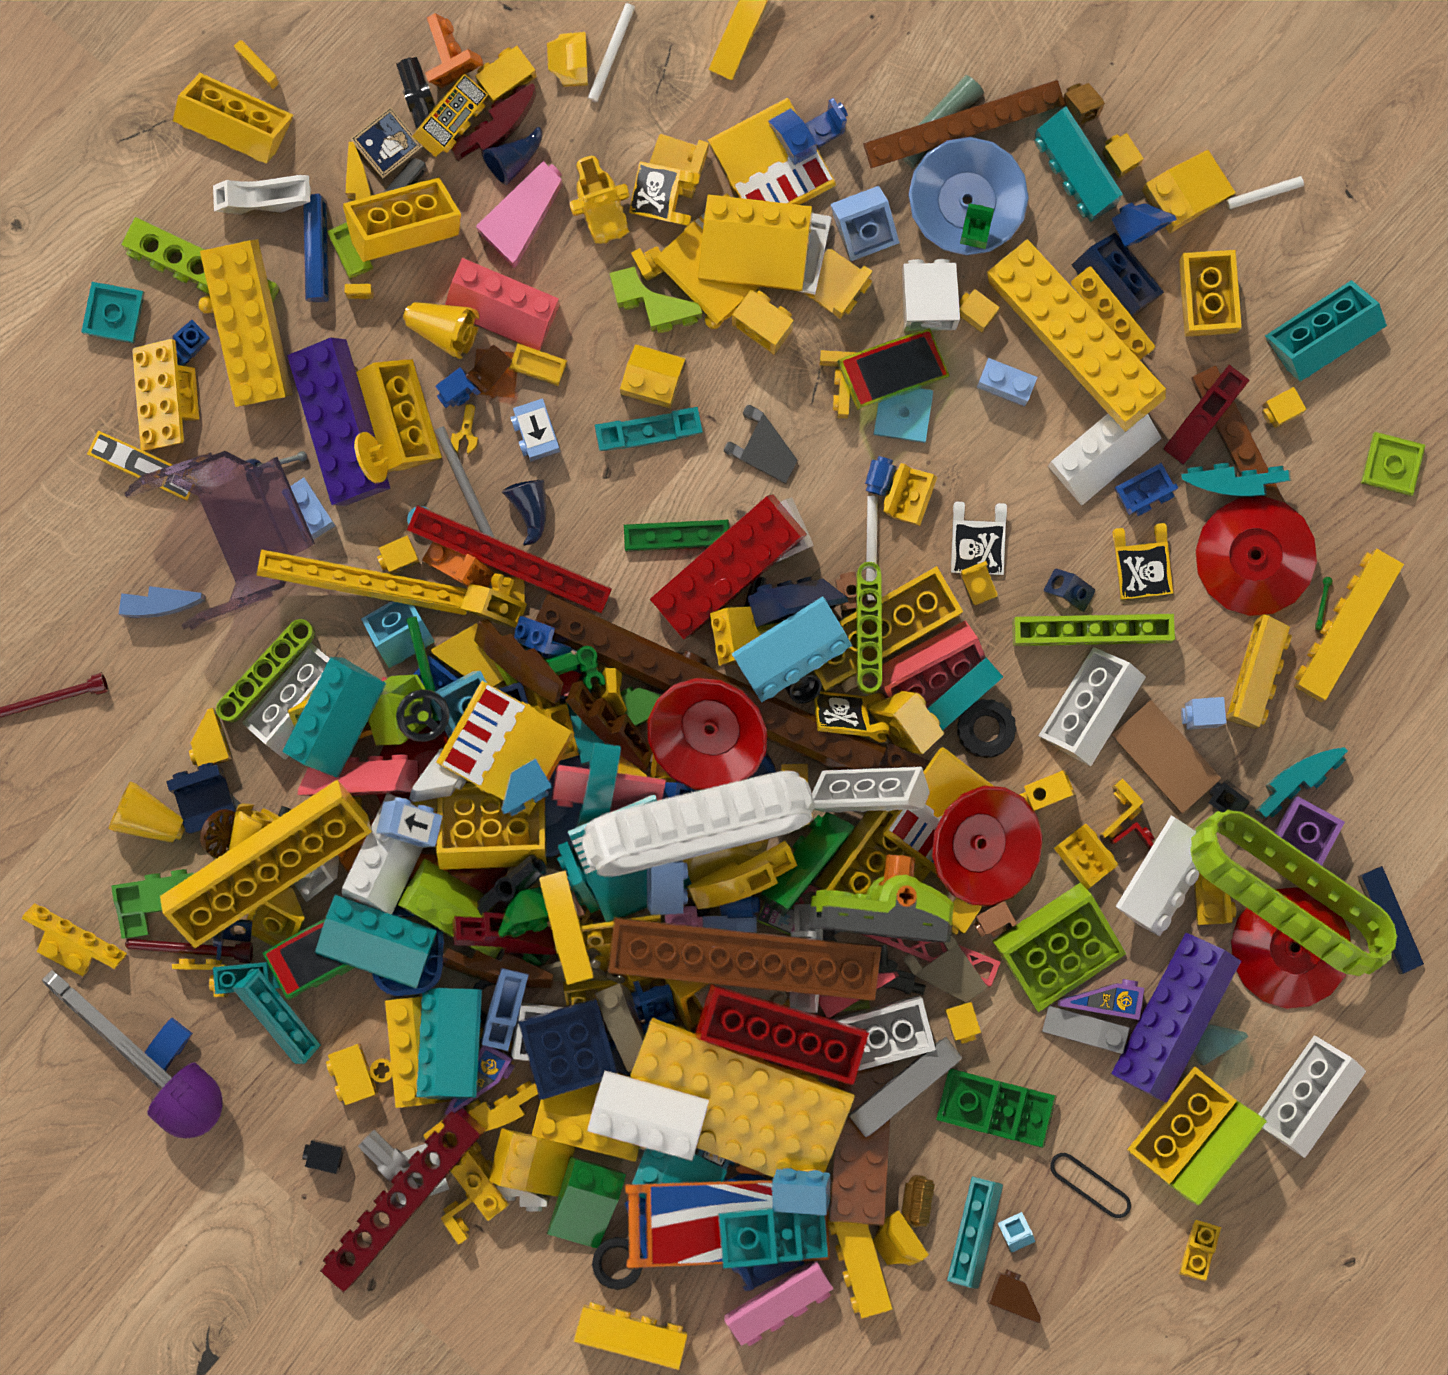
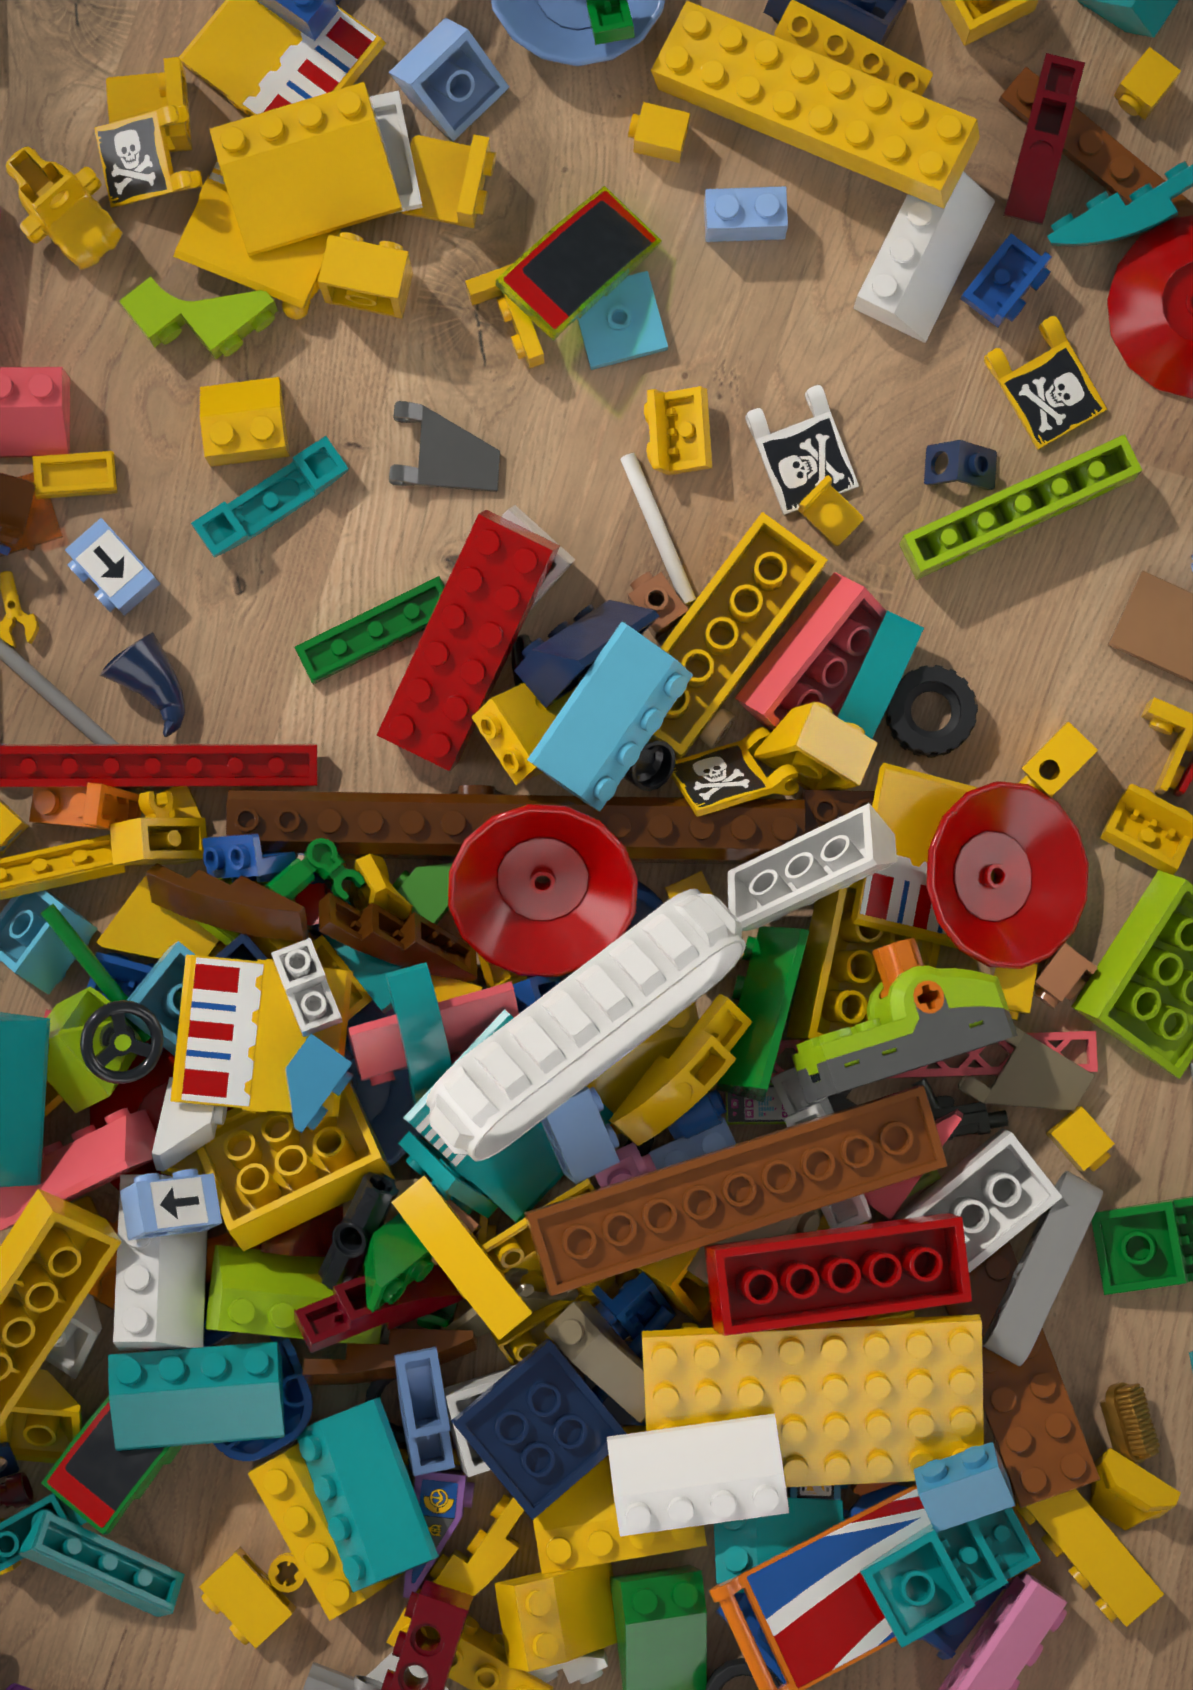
camera: 20 degrees left, 0 degrees up
(544, 730) = (306, 987): none -> white slope
(646, 264) = (163, 264): yellow bracket -> none
(873, 615) = (705, 619): lime beam -> none
(880, 476) = (626, 422): blue brick -> none
(930, 295) = (586, 140): white slope -> none
(1092, 706) = (1065, 614): white slope -> none

